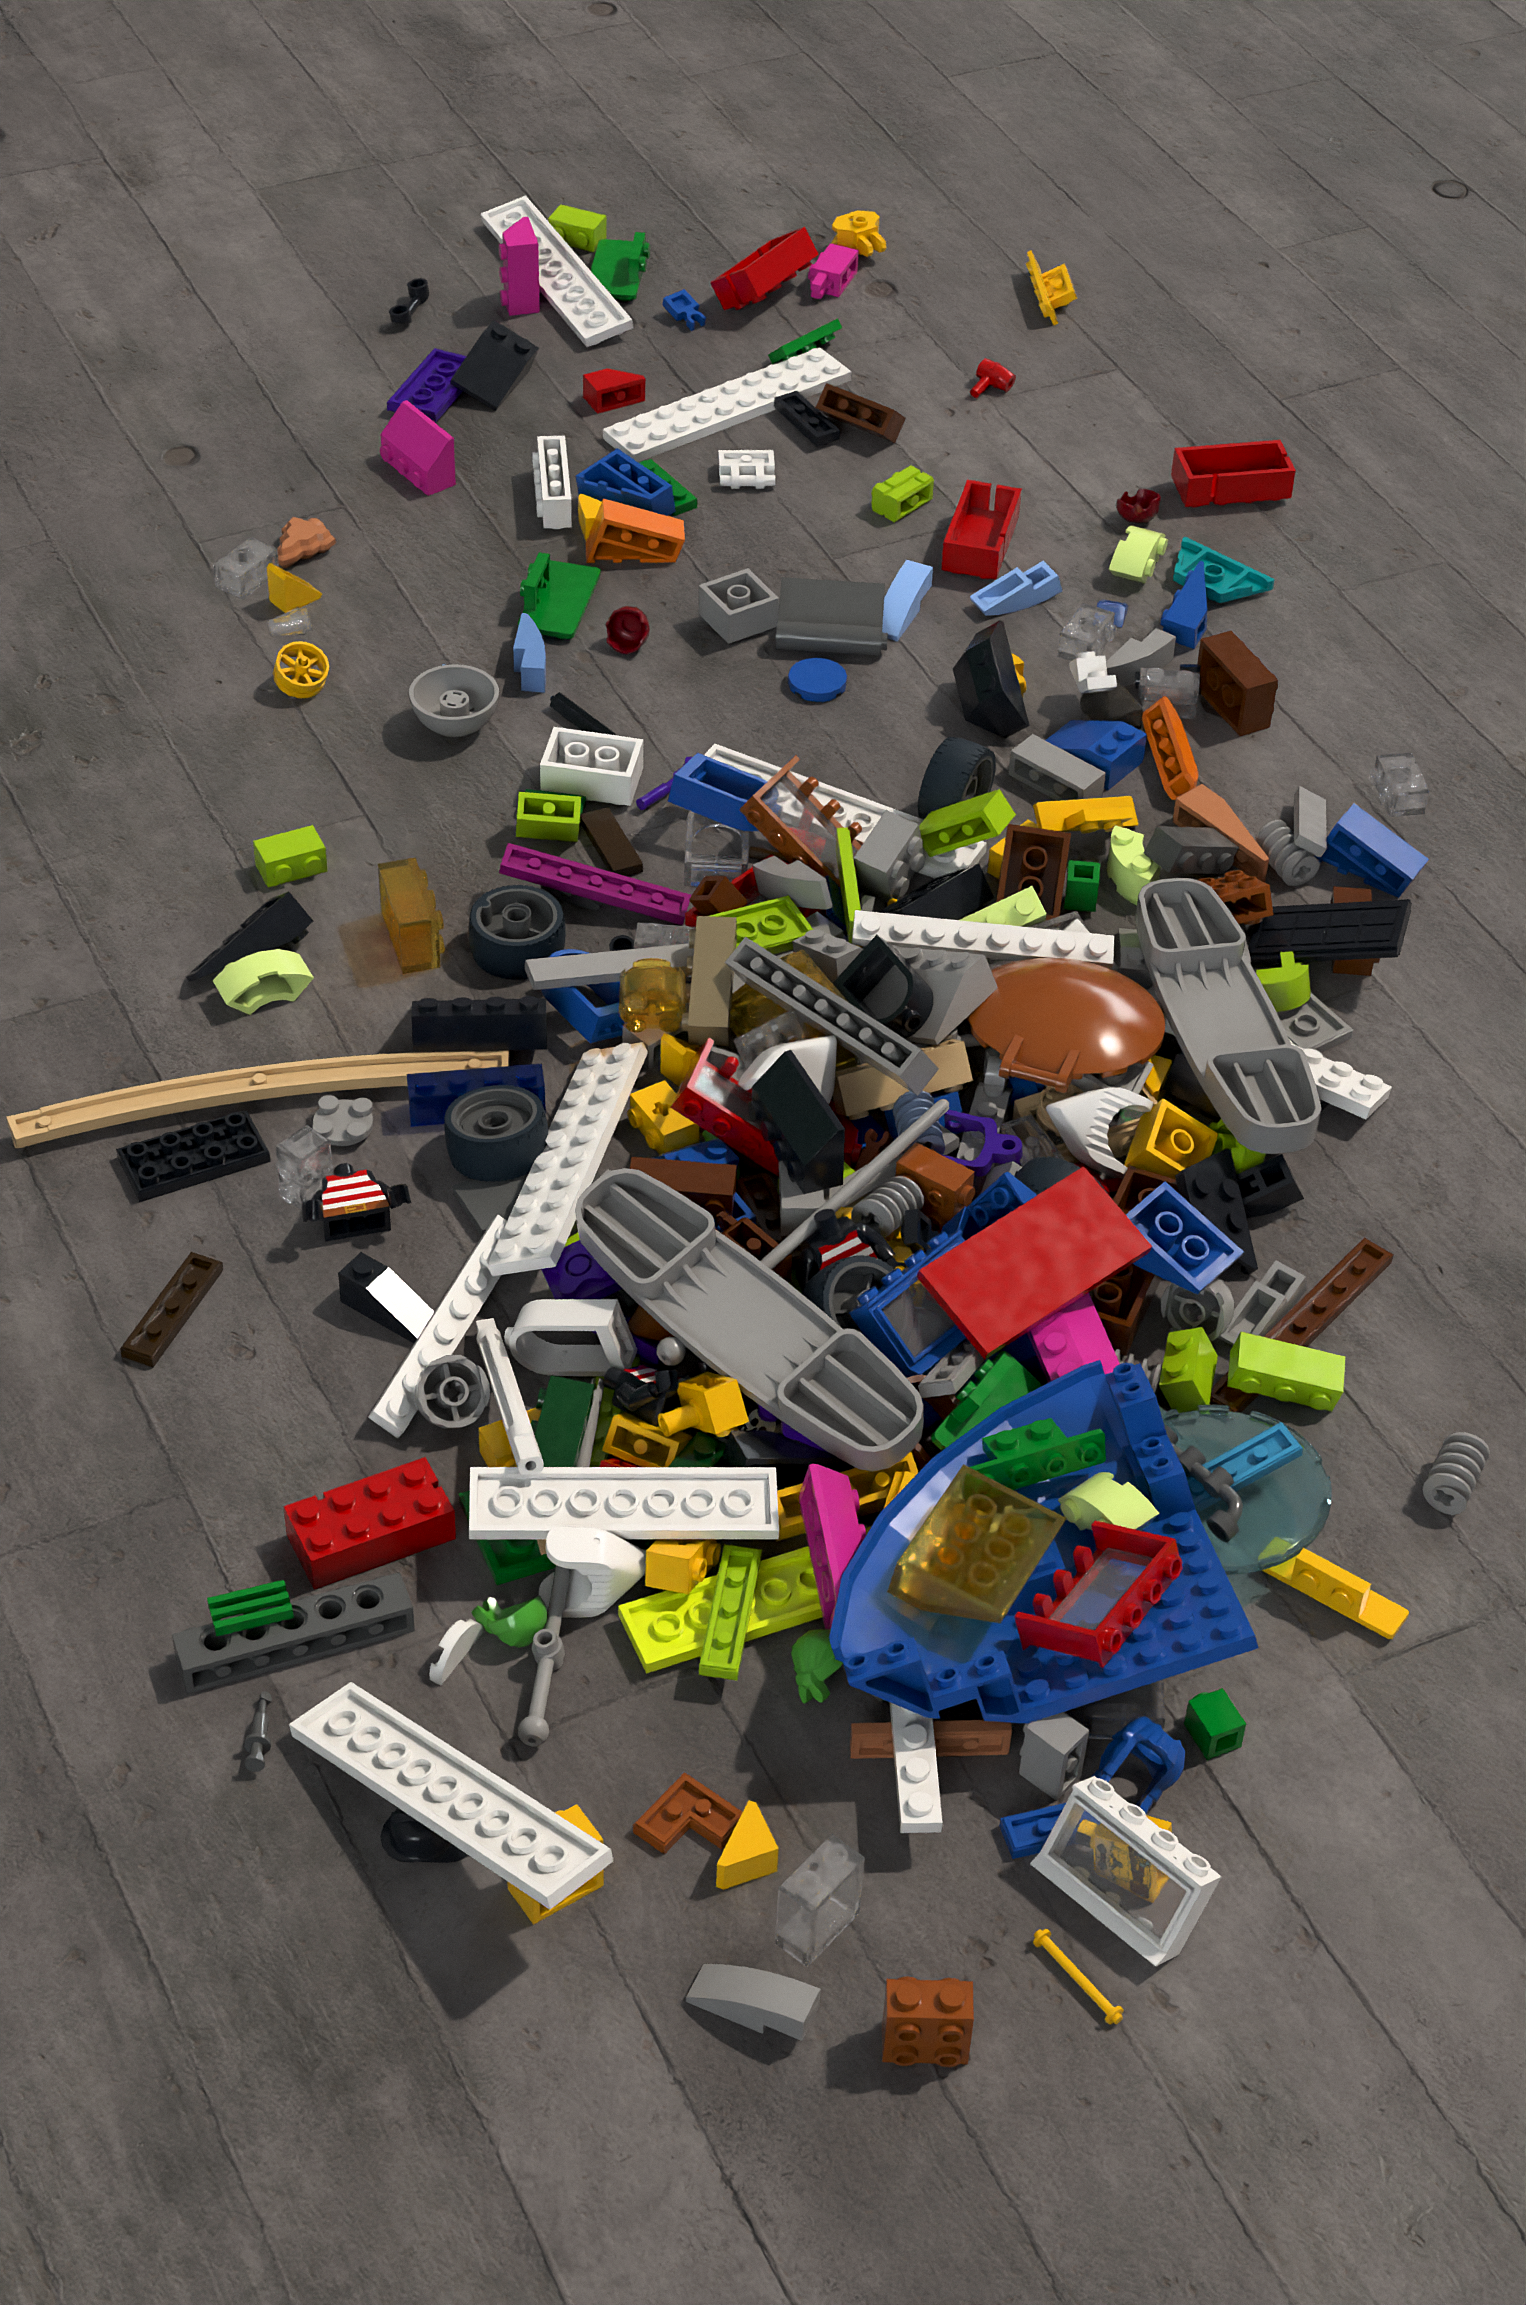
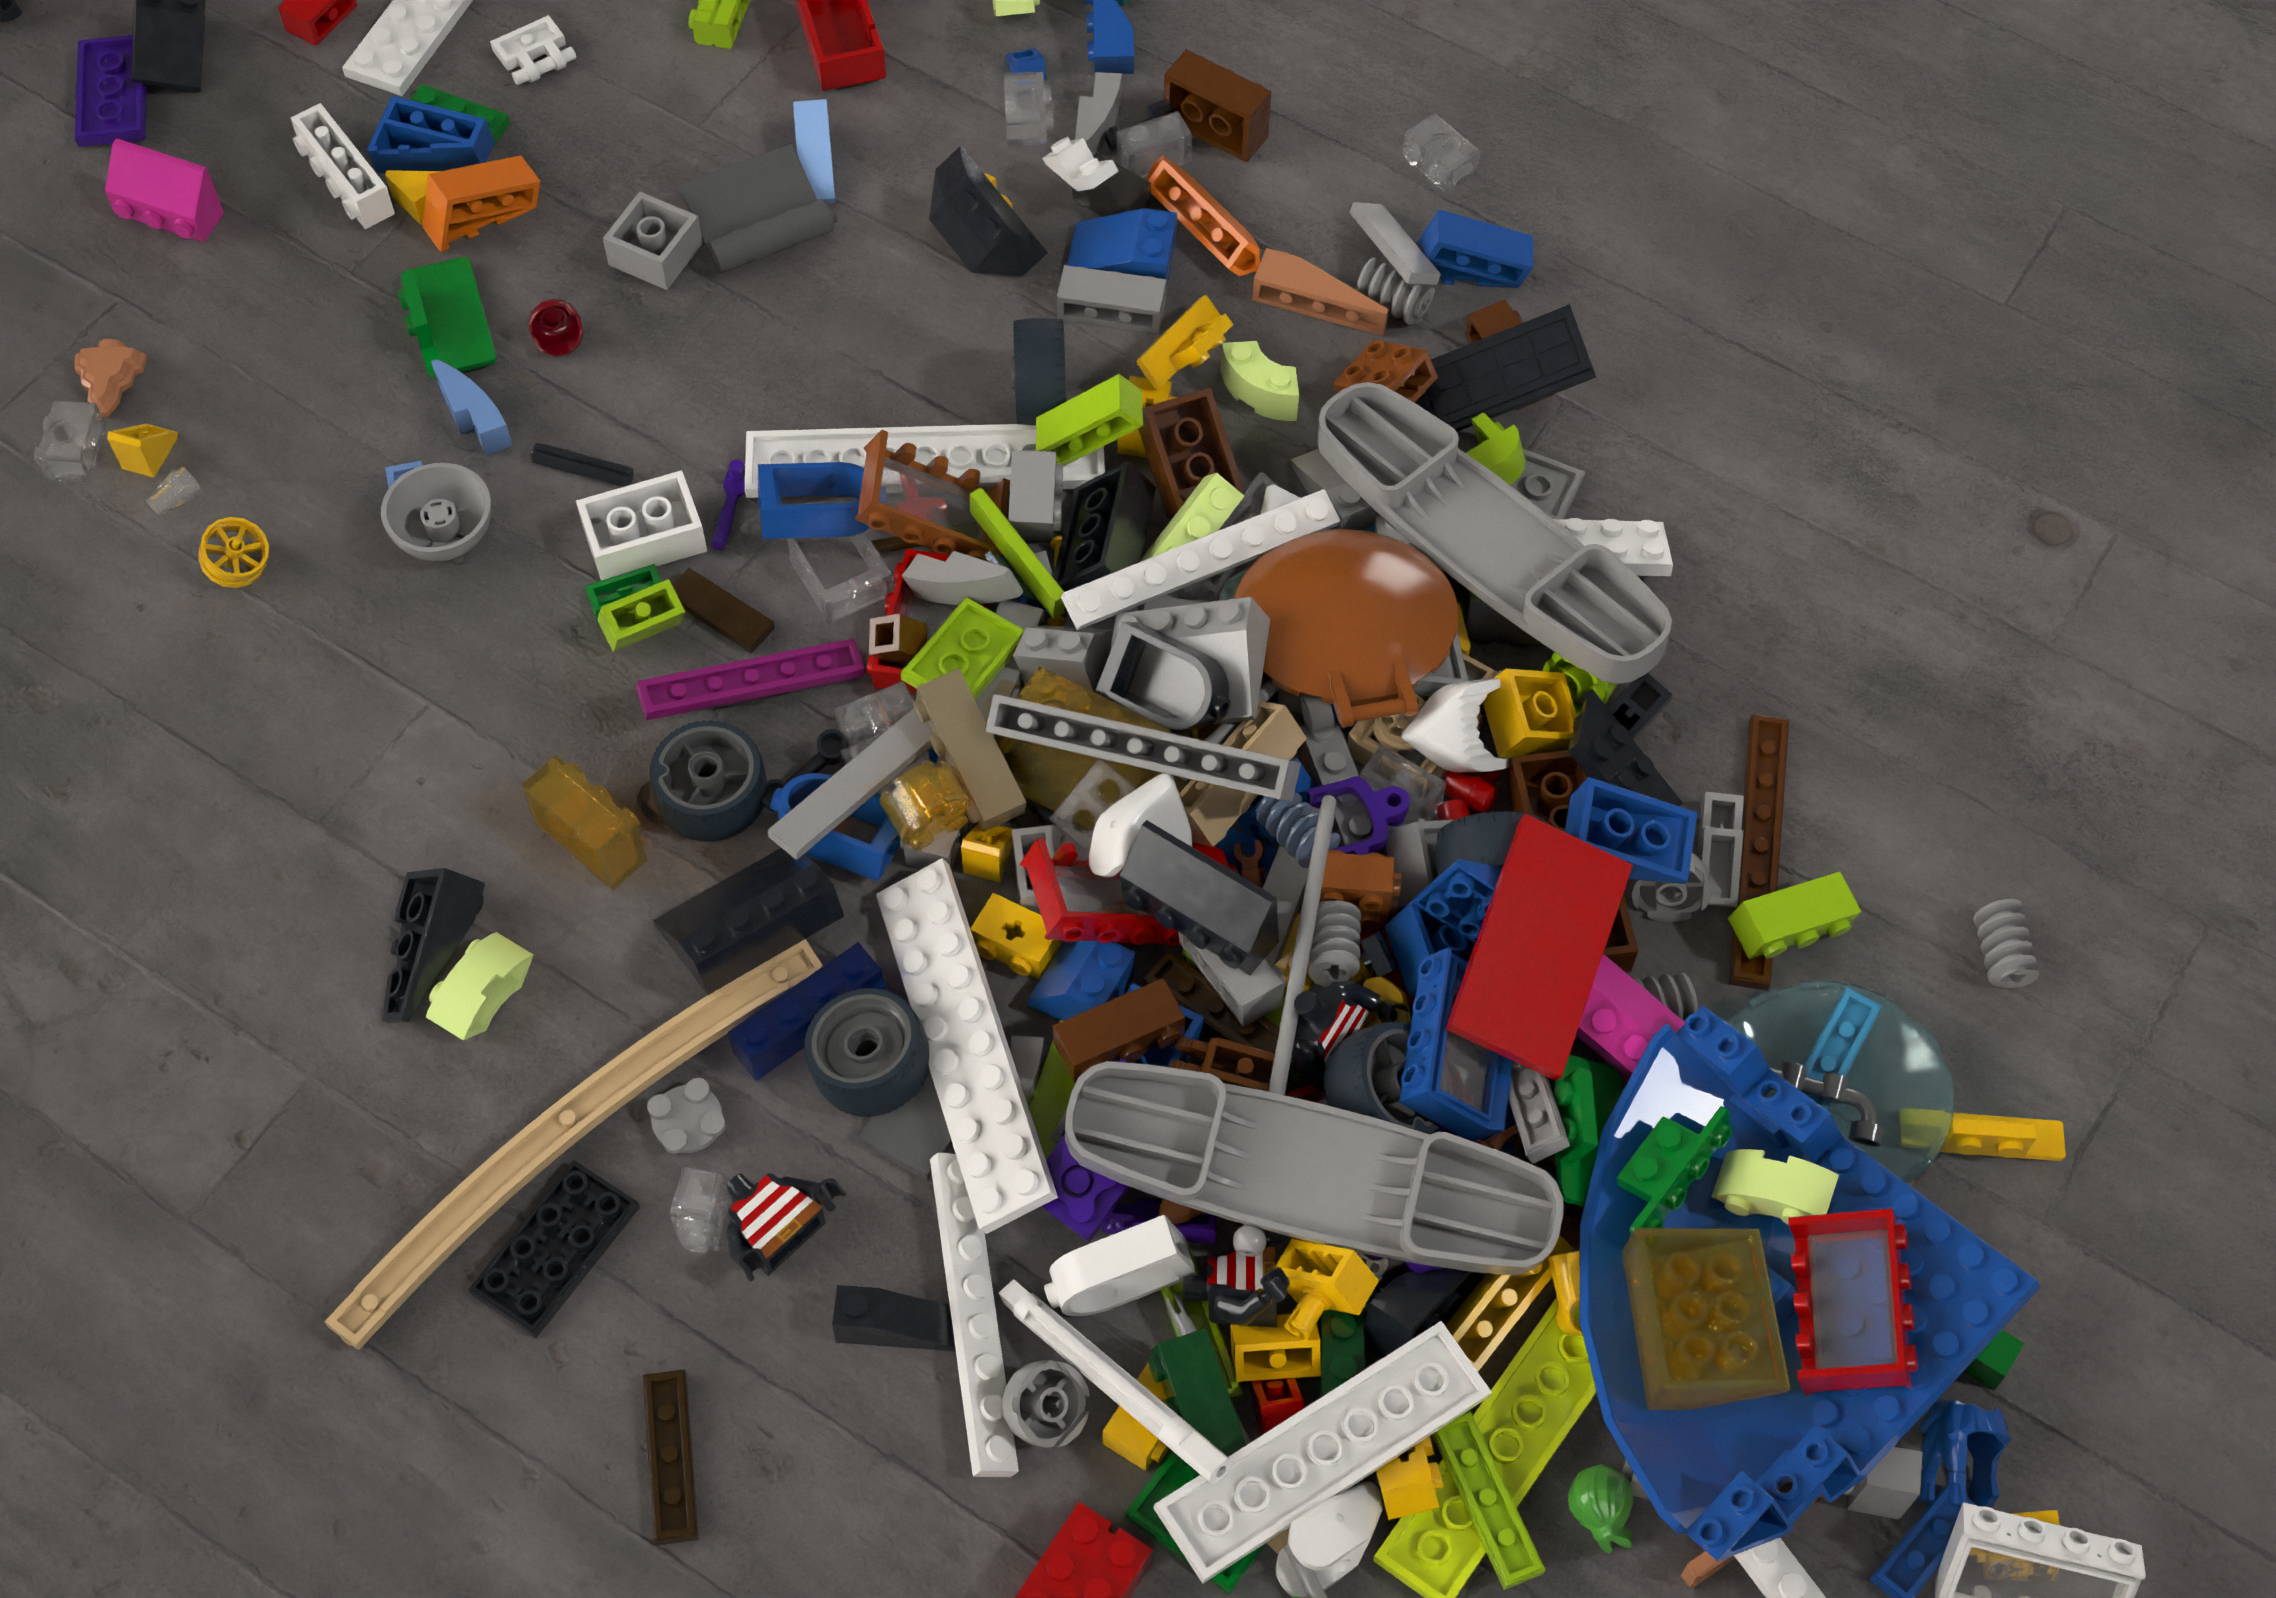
camera: 30 degrees left, 15 degrees up
(290, 856) = (393, 806): lime brick -> none
(817, 679) = (790, 293): blue tile -> none
(830, 1530) = (1549, 1378): dark pink slope -> none
(1018, 590) = (920, 84): light blue slope -> none
(1082, 886) = (1239, 428): green brick -> none
(1188, 1369) = (1708, 963): lime brick -> none
(1191, 850) = (1313, 337): dark grey brick -> none

